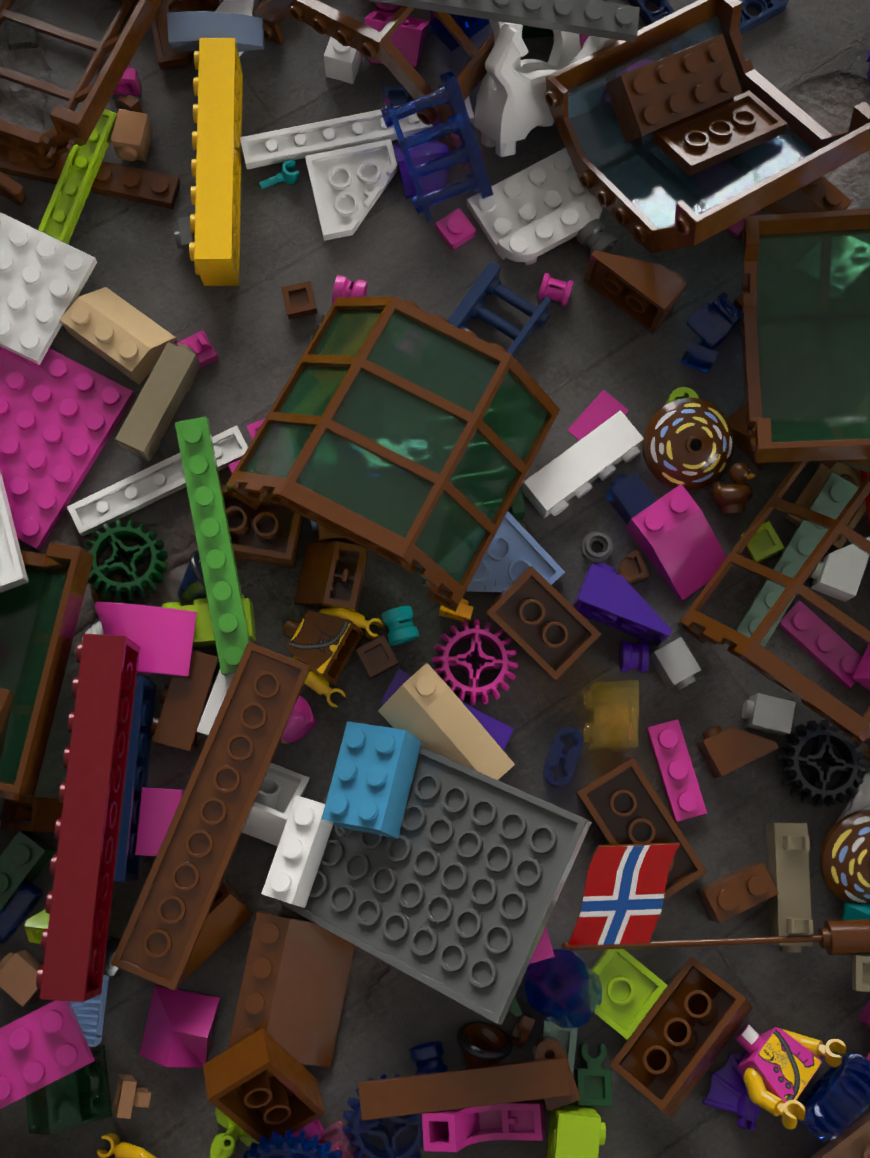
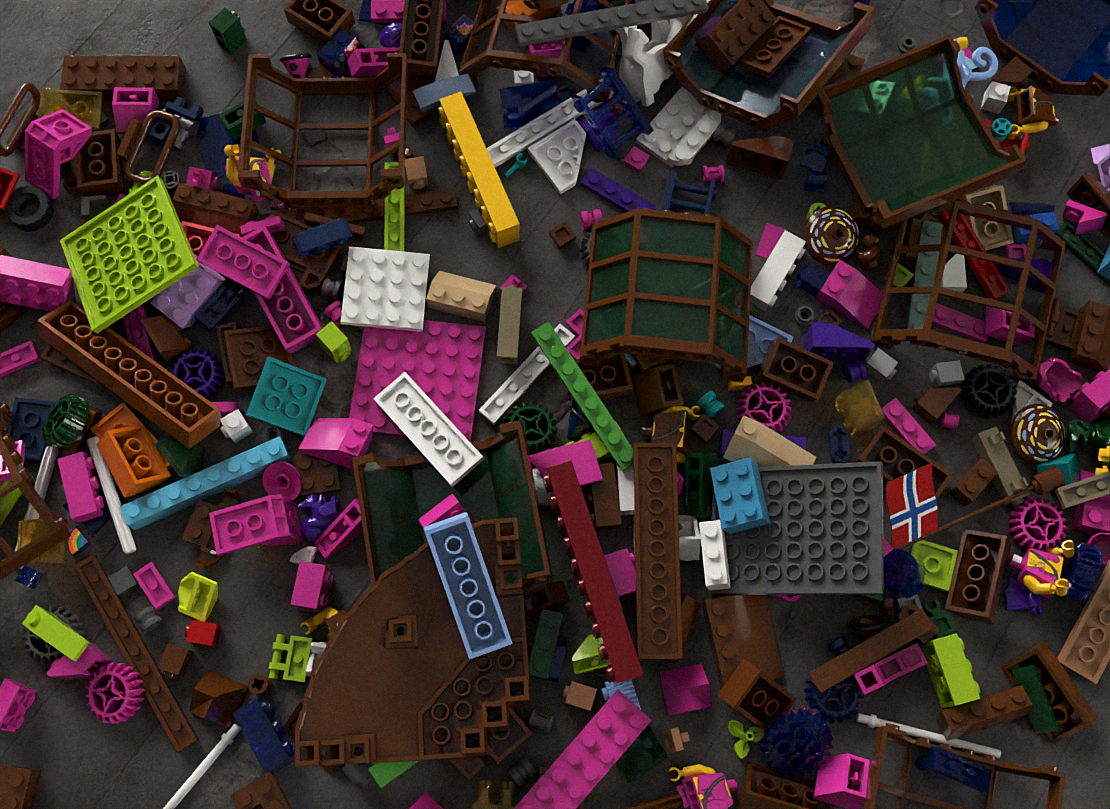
camera: 20 degrees left, 5 degrees down
(327, 730) = (698, 481): none -> dark green slope
(328, 89) = (526, 102): none -> clear blue slope
(404, 268) = (613, 192): none -> dark purple plate
(742, 785) = (949, 420): none -> dark pink axle
(805, 1007) = (1035, 510): none -> dark pink gear

